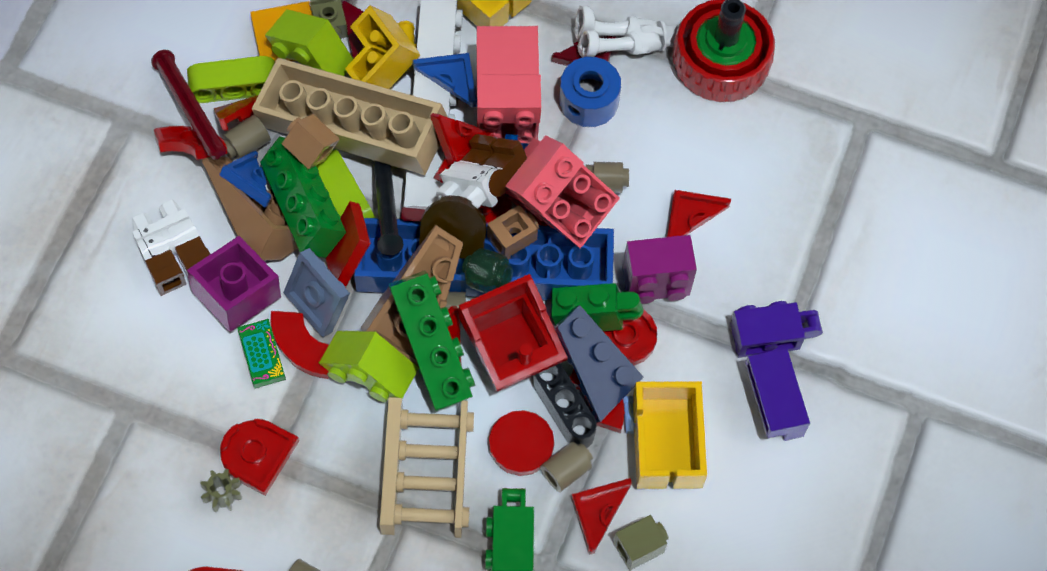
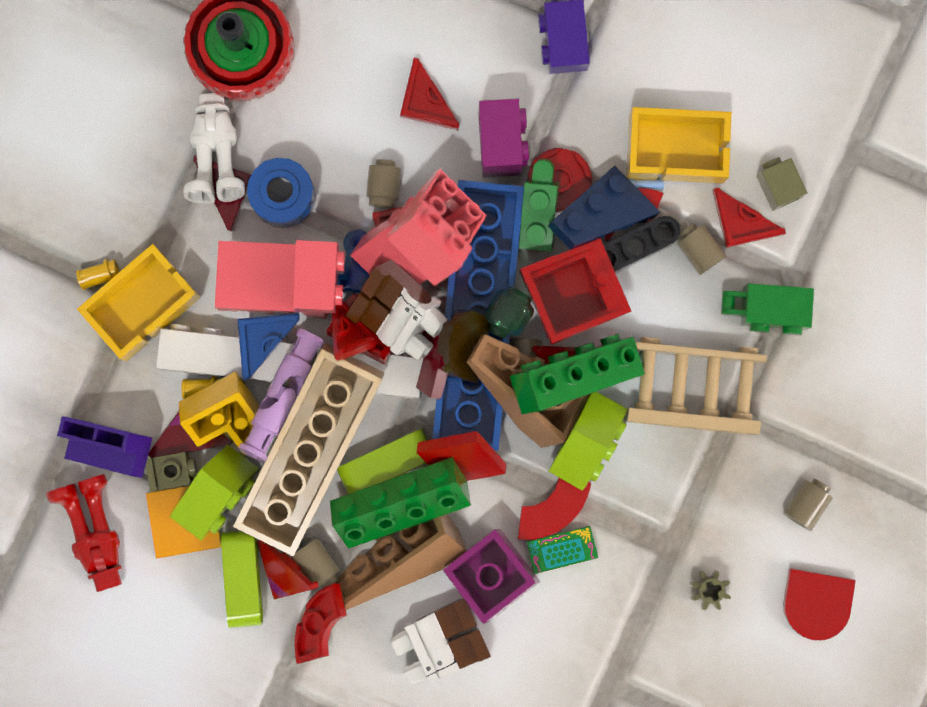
camera: 85 degrees left, 20 degrees up
(165, 62) = (279, 624): dark red axle -> none
(248, 177) = (371, 560): blue tile -> none
(256, 452) = (667, 555): red tile -> none
(310, 140) = (346, 492): medium nougat brick -> none
(316, 292) = (508, 490): sand blue plate -> none
(380, 75) = (279, 400): none -> lavender piece
(389, 241) = (425, 414): black axle -> none
(513, 221) = (475, 293): medium nougat brick -> none
(521, 442) = (670, 292): red tile -> none
(778, 394) = (640, 34): dark purple piece -> none

